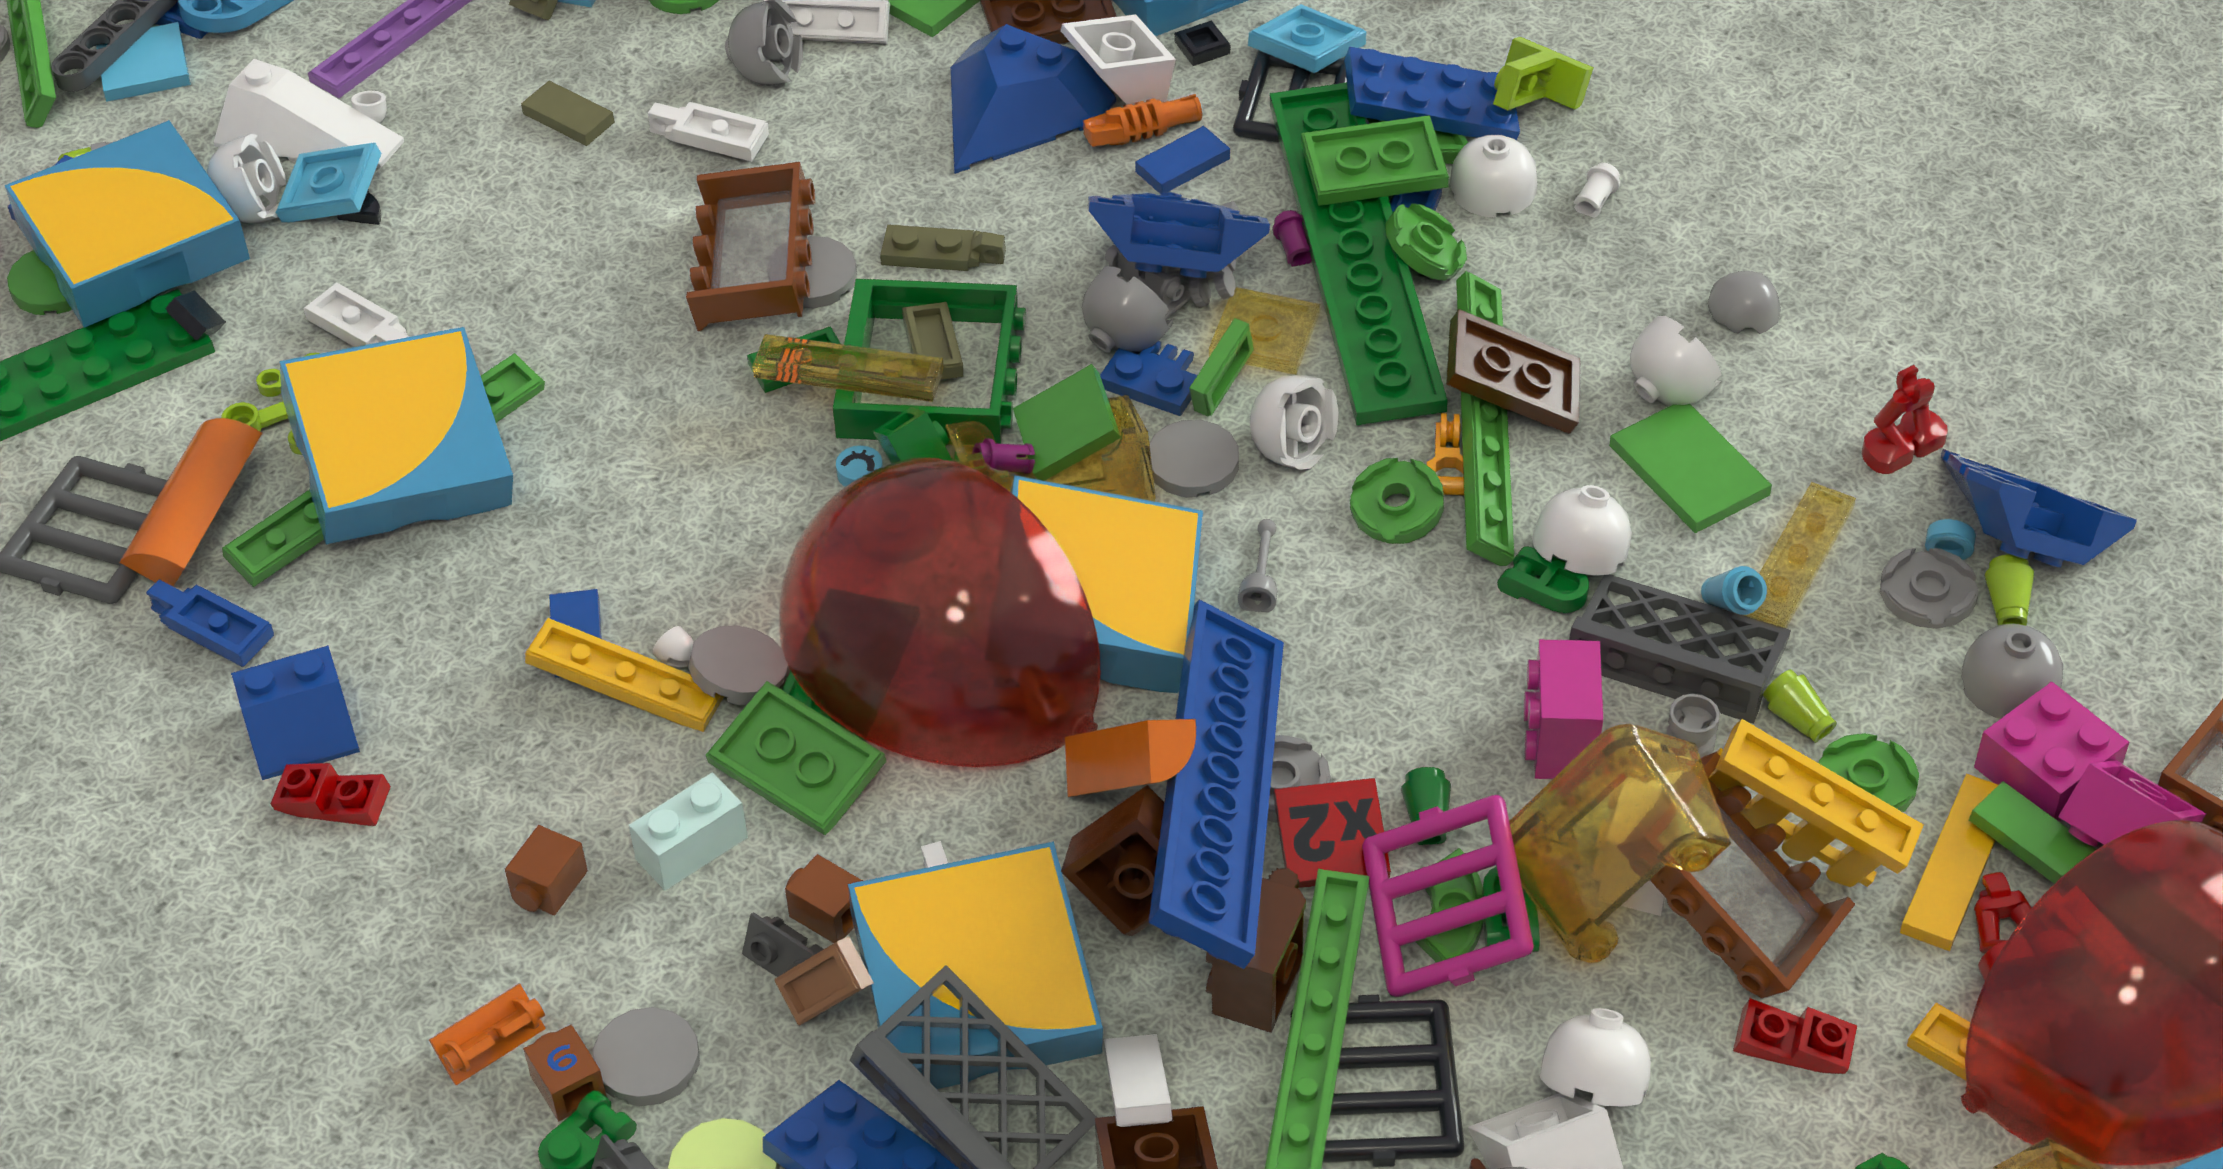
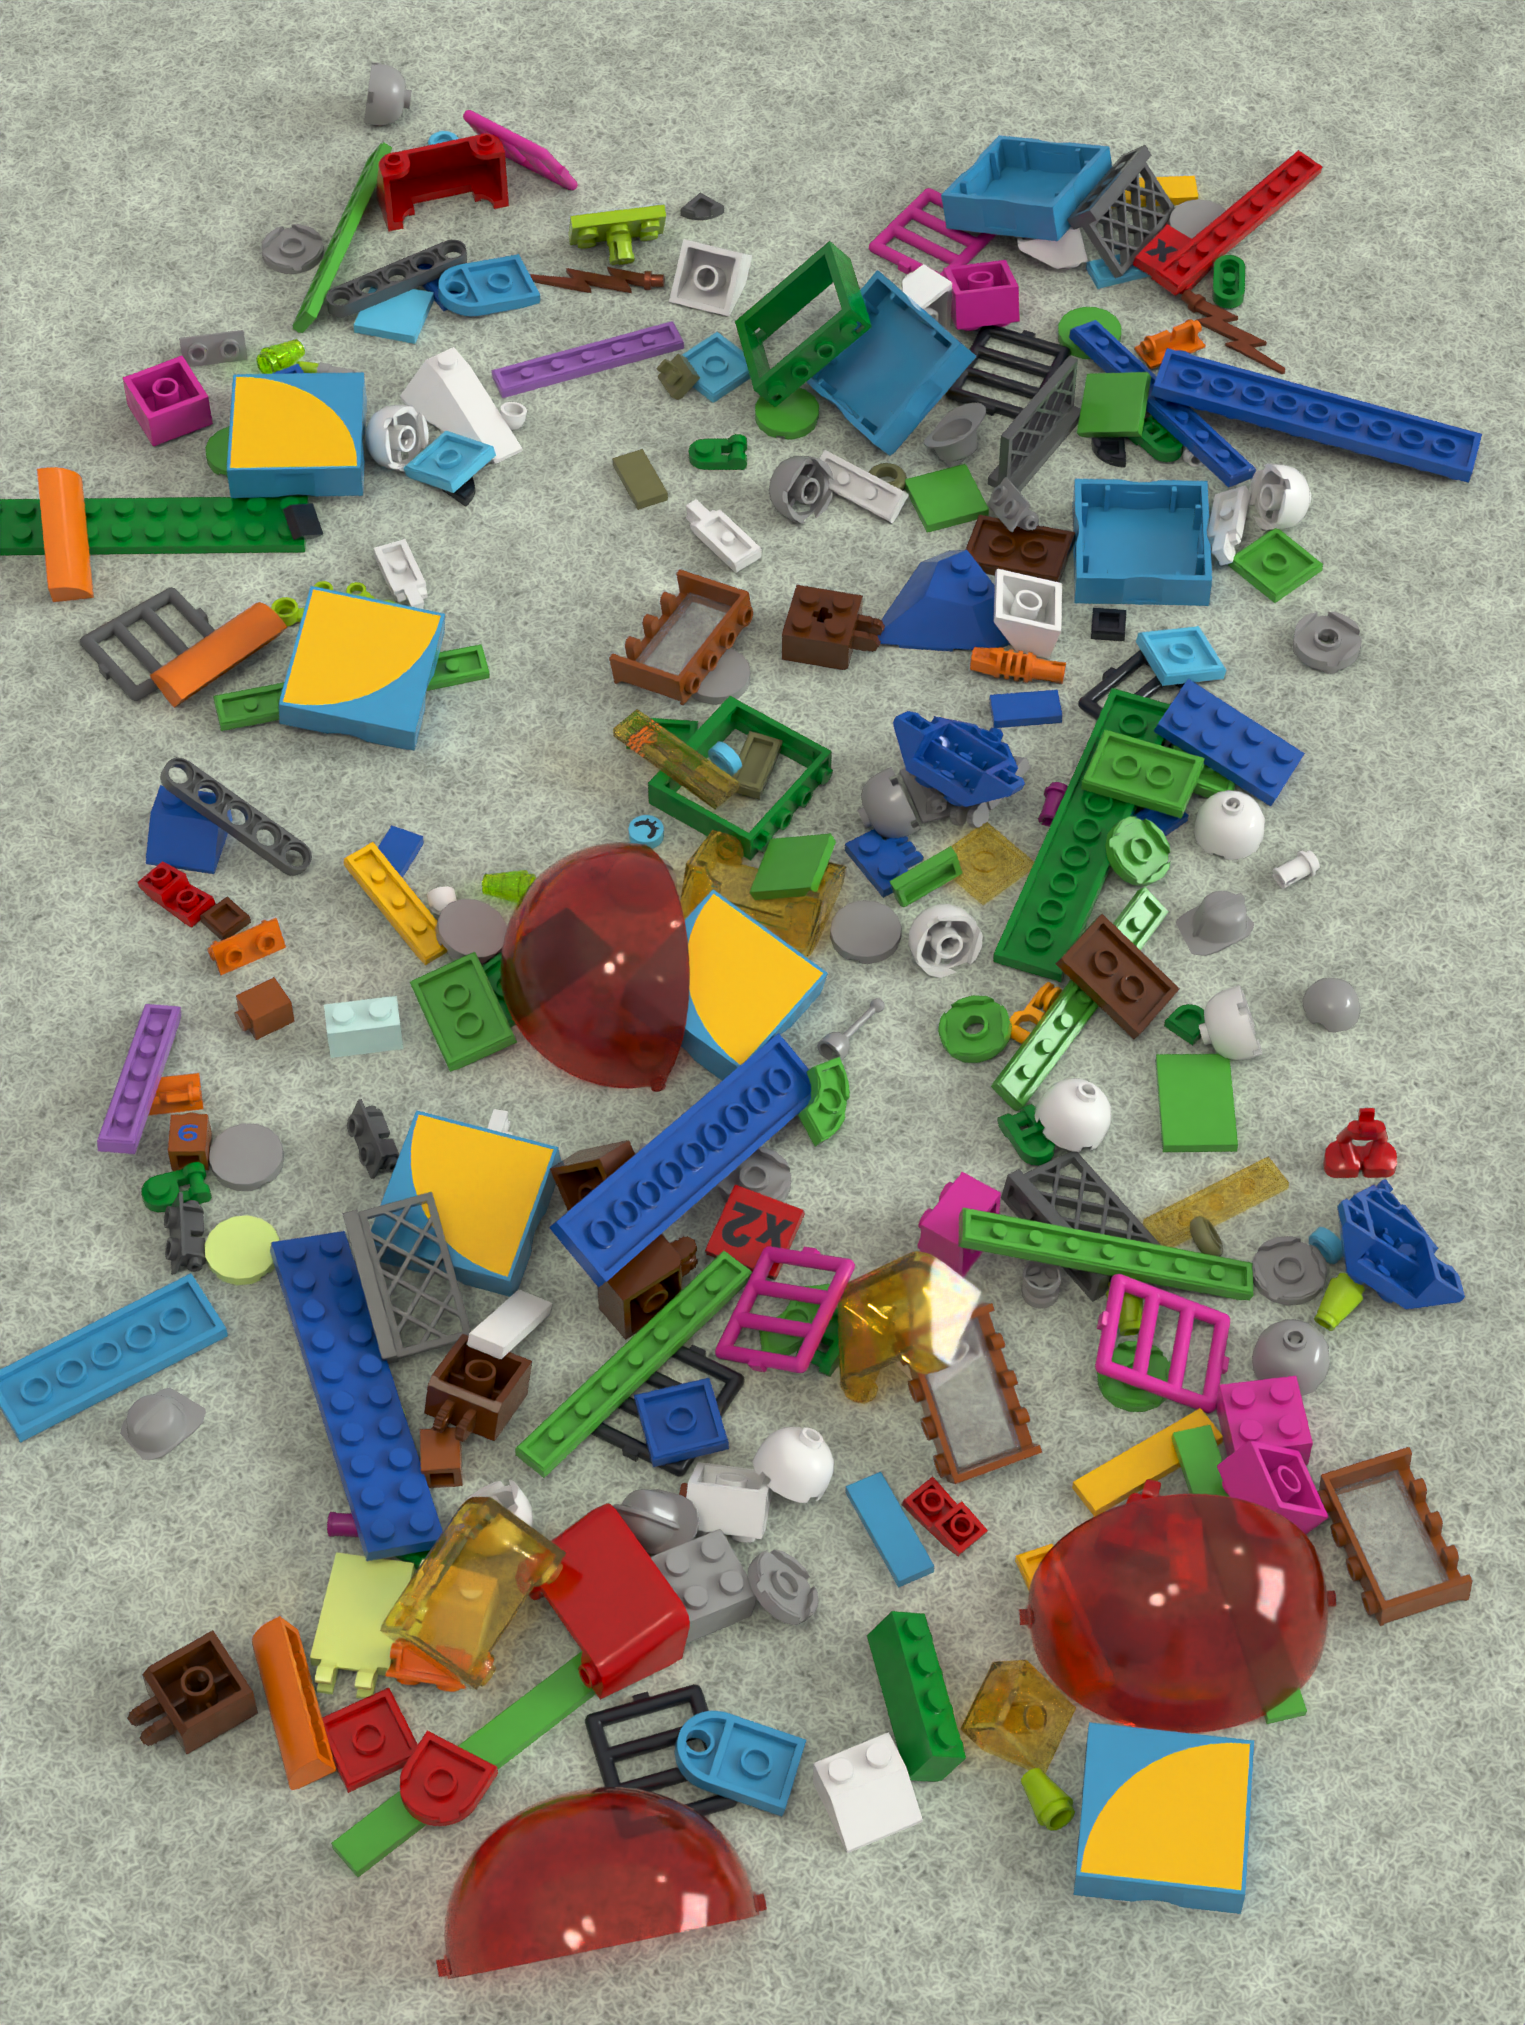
camera: 30 degrees right, 5 degrees up
(34, 155) = (279, 356): none -> clear neon green cone
(211, 621) = (179, 739): blue hinge -> none
(335, 669) = (227, 800): none -> dark grey beam
(414, 794) = (225, 919): none -> reddish brown tile
(452, 1028) = (139, 1079): none -> medium lavender tile
(467, 812) = (247, 946): none -> orange hinge
(628, 55) = (706, 453): none -> green plate
(745, 595) = (507, 885): none -> clear neon green cone
(820, 898) = (407, 1101): dark orange brick -> none
(823, 980) = (369, 1164): medium nougat tile -> none
(907, 168) = (826, 628): none -> reddish brown hinge
(908, 338) = (725, 758): none -> medium azure tile
(913, 436) = (682, 833): green brick -> none
(940, 248) = (811, 697): olive hinge -> none
(1004, 456) = (732, 870): magenta pin -> none
(1128, 755) = (644, 1115): orange brick -> none
(1298, 653) = (827, 1102): none -> bright green tile
(1421, 1088) = (681, 1422): none -> blue tile
(1424, 790) = (834, 1239): green cone -> none
(1537, 73) = (1318, 759): lime bracket -> none
(1558, 278) = (1215, 923): none -> light grey piece
(1613, 390) = (1186, 1022): none -> green tile
(1736, 590) = (1147, 1213): medium azure cone -> none
(1746, 657) = (1105, 1254): none -> bright green tile
(1746, 1084) = (889, 1529): none -> dark azure tile
(1824, 593) = (1206, 1236): none -> olive piece
(1825, 802) = (1045, 1368): yellow fence -> none
(1881, 766) = (1137, 1376): none -> dark pink bar

